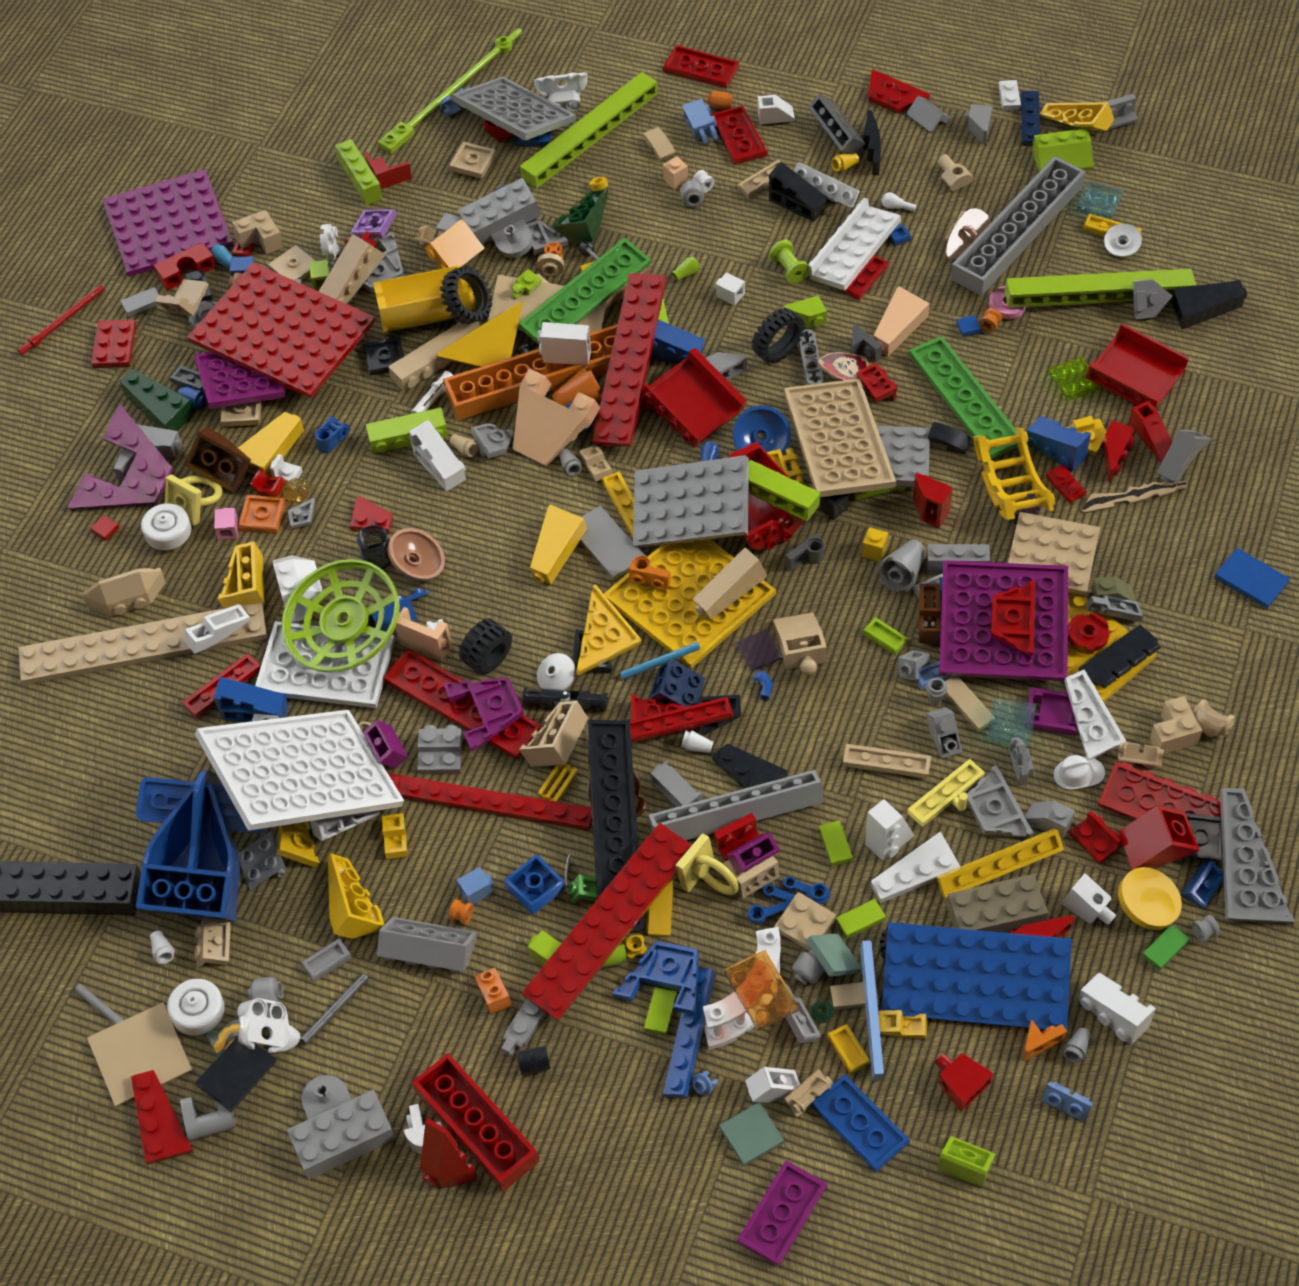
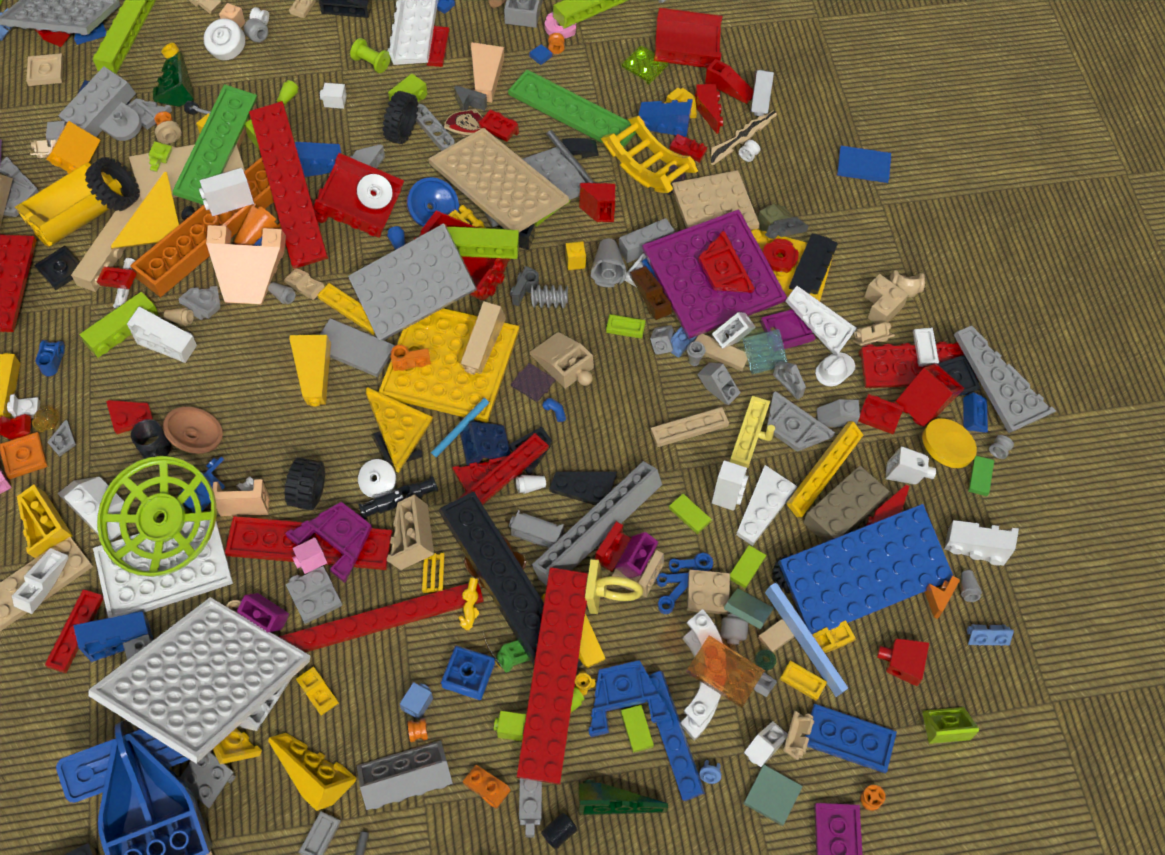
camera: 35 degrees left, 5 degrees up
(426, 385) = (116, 277): none -> red plate
(452, 712) = (309, 556): none -> bright pink brick
(569, 832) = (470, 611): none -> yellow animal
(588, 1054) = (607, 800): none -> dark green wedge
(654, 192) = (224, 39): none -> white wheel
(713, 390) = (374, 183): none -> white dish
(823, 575) = (549, 296): none -> light grey piece
(845, 1179) = (876, 794): none -> orange wheel
(930, 444) = (569, 156): none -> flat silver bar
(996, 681) = (736, 328): none -> white torso
(1129, 512) = (749, 150): none -> white wheel
(1185, 790) = (925, 346): none -> white tile

